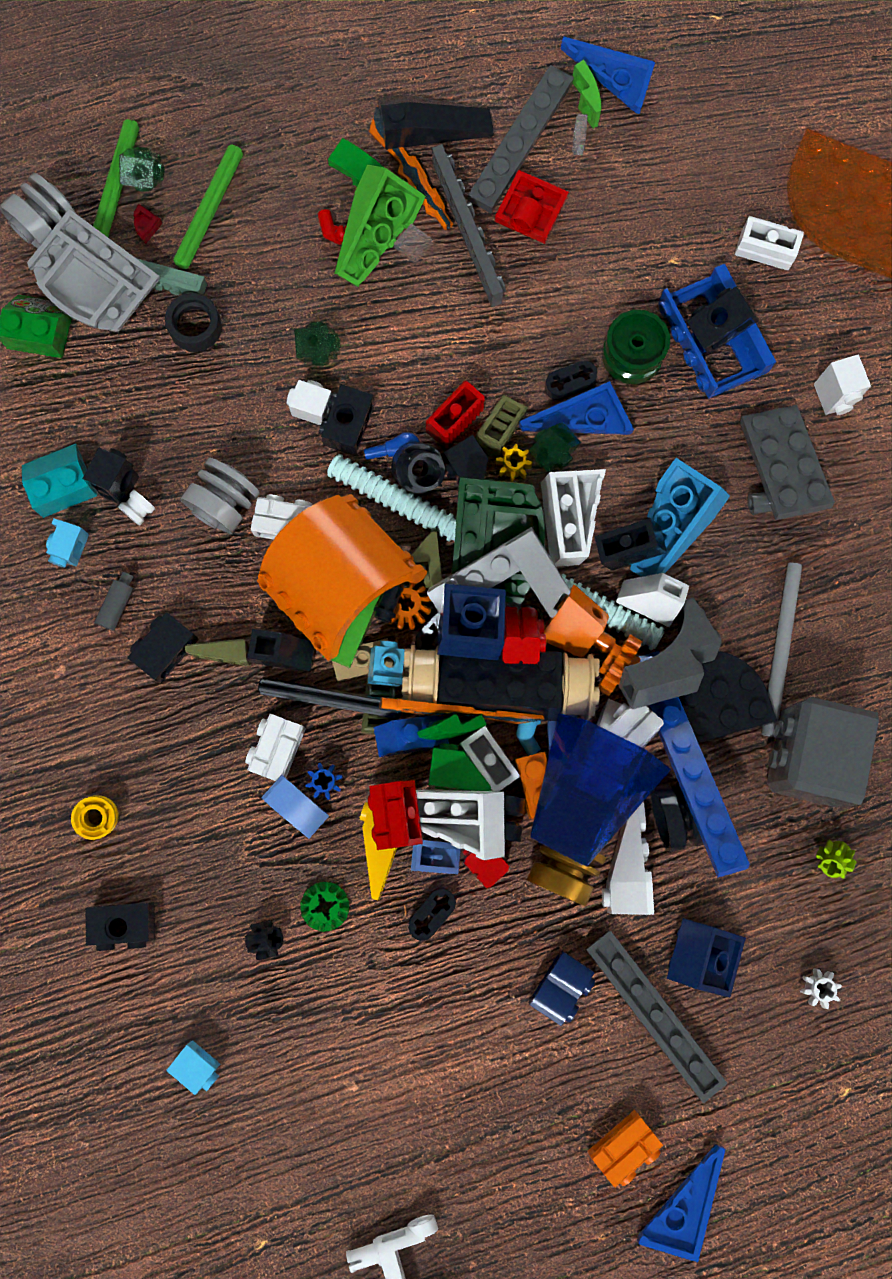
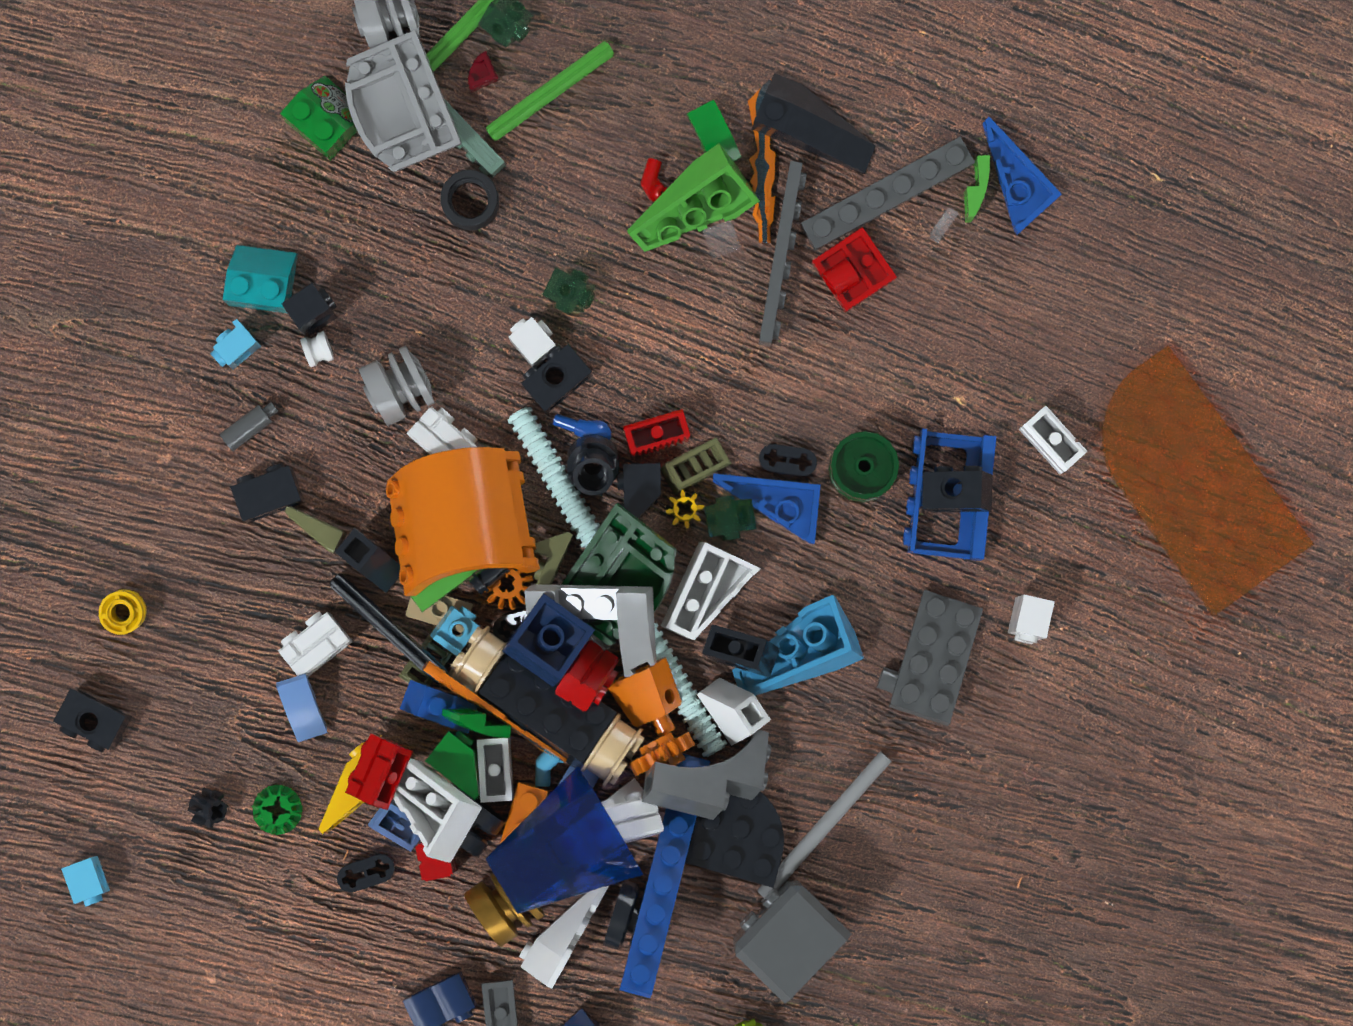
camera: 30 degrees right, 5 degrees up
(331, 785) = (347, 695): blue gear -> none

